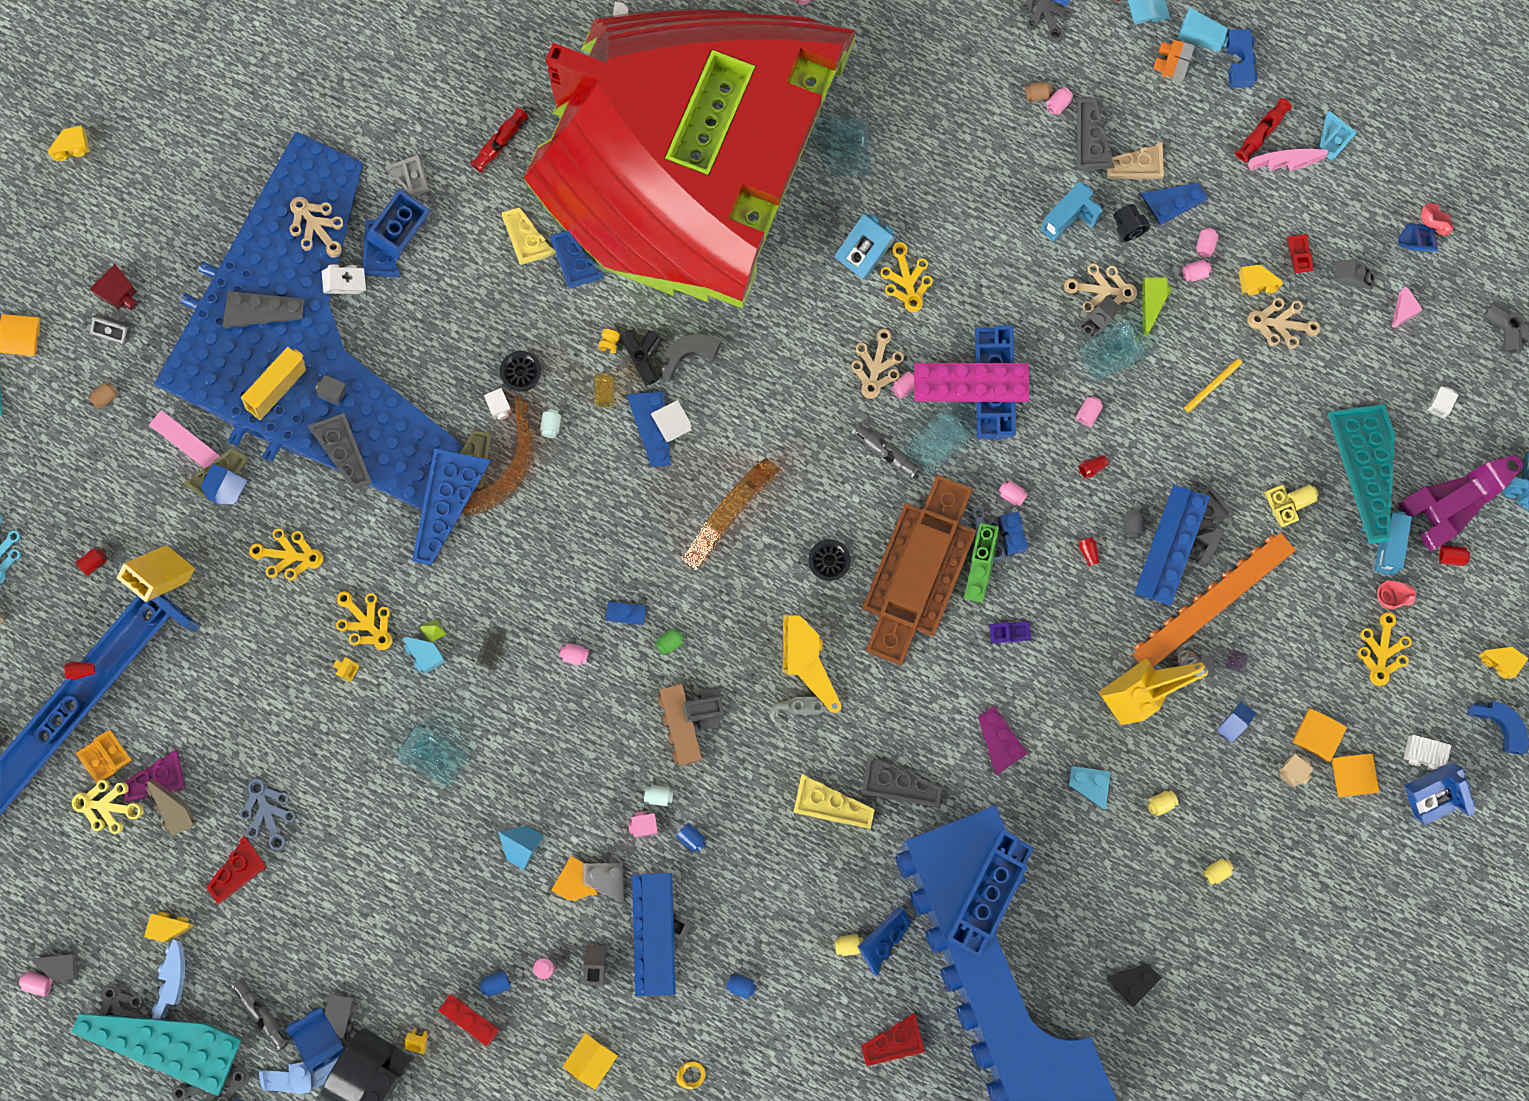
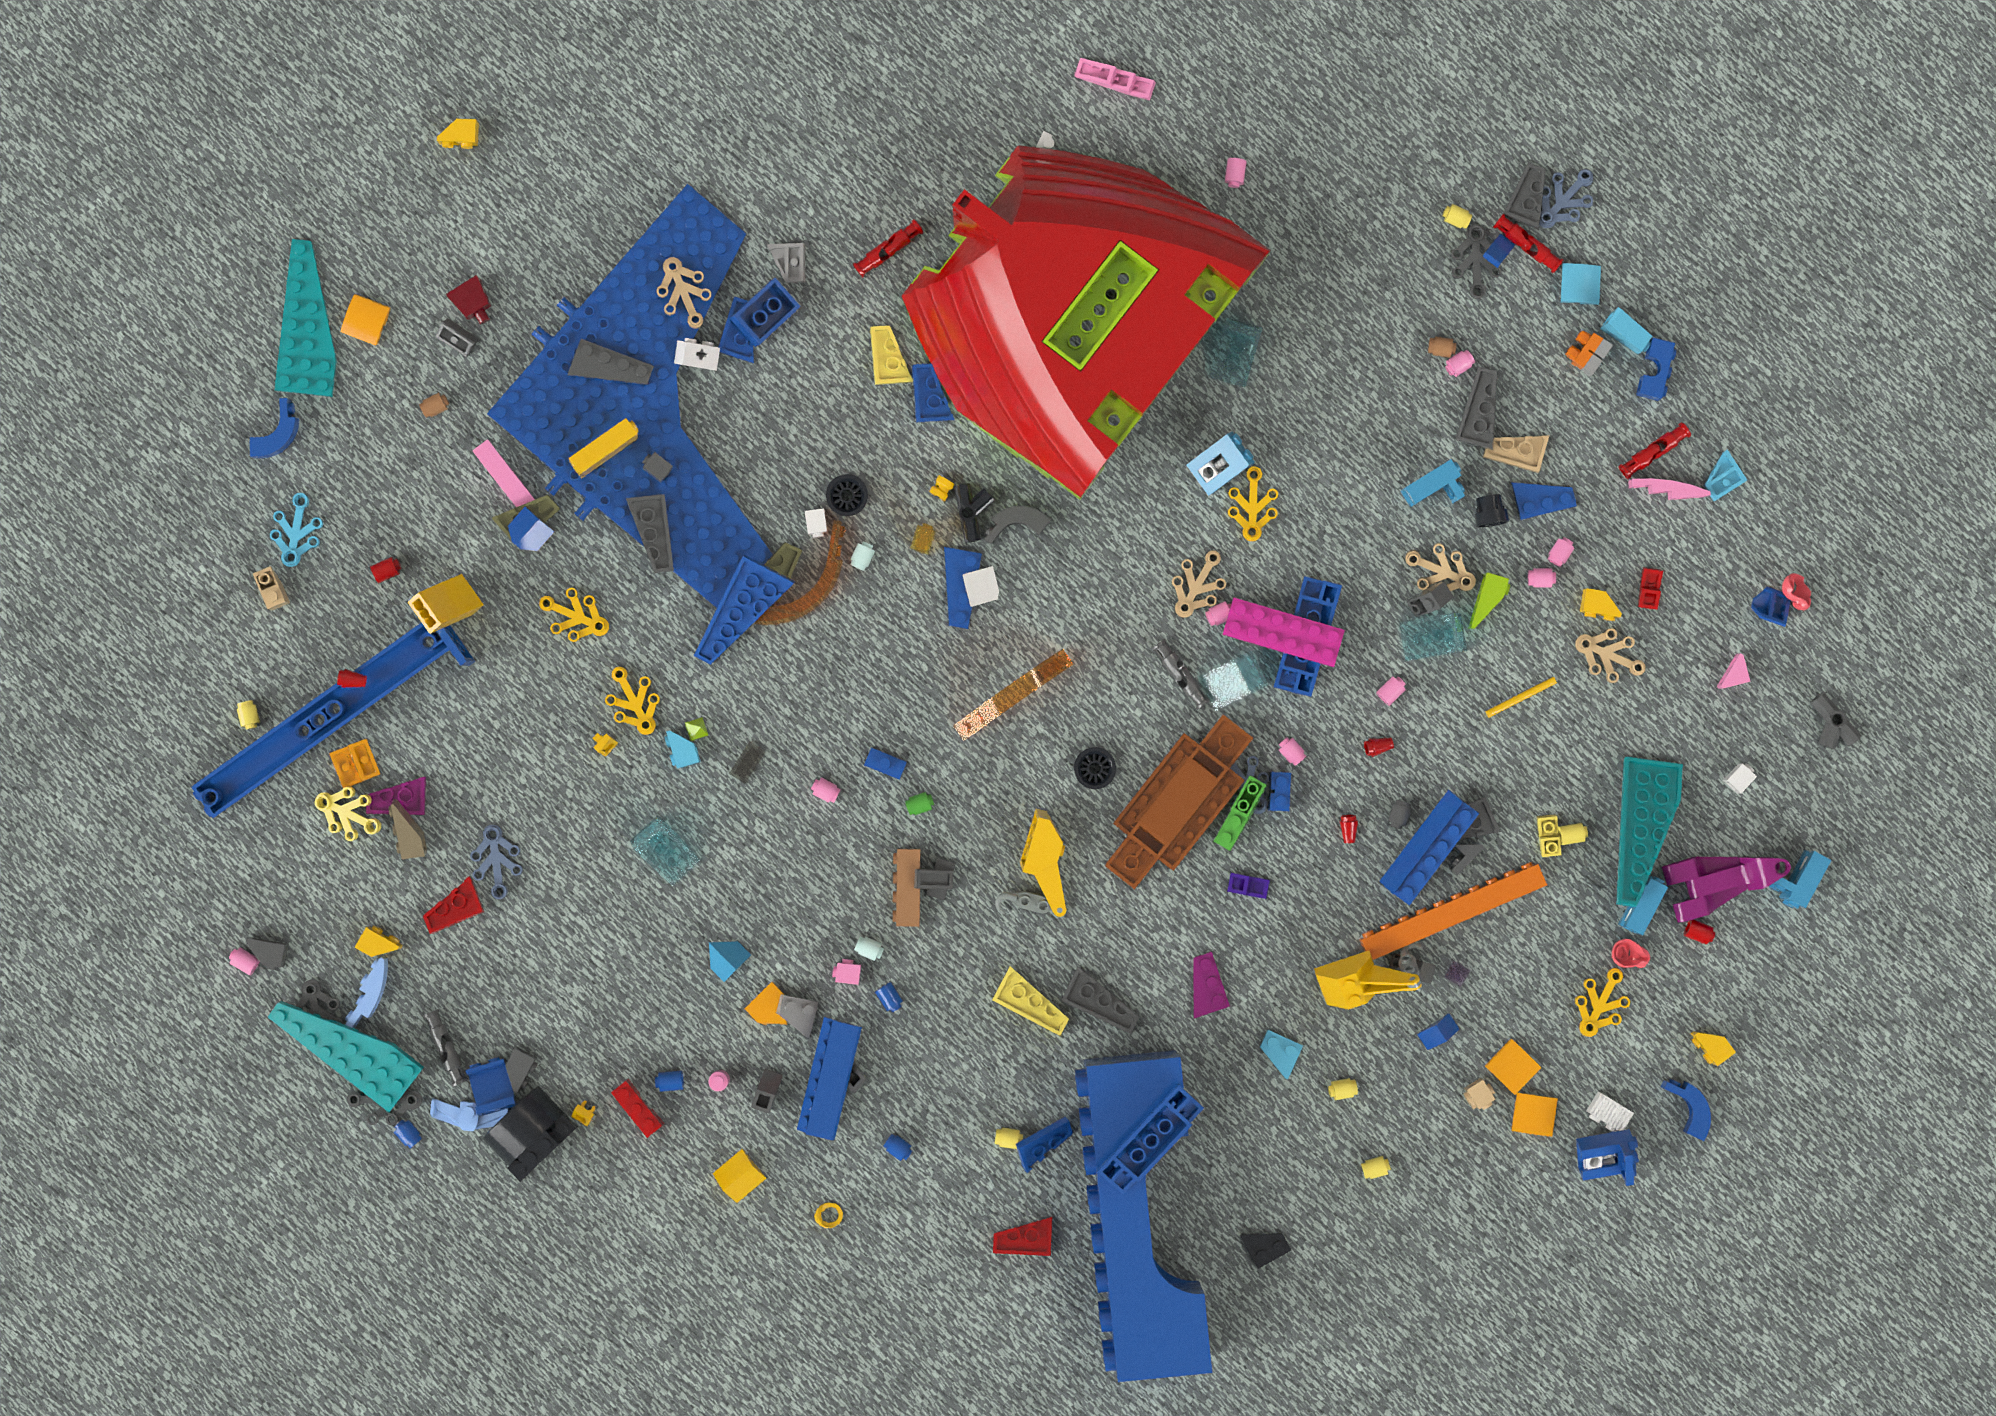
camera: 15 degrees right, 10 degrees up
(1354, 274) = (1696, 625): dark grey slope -> none

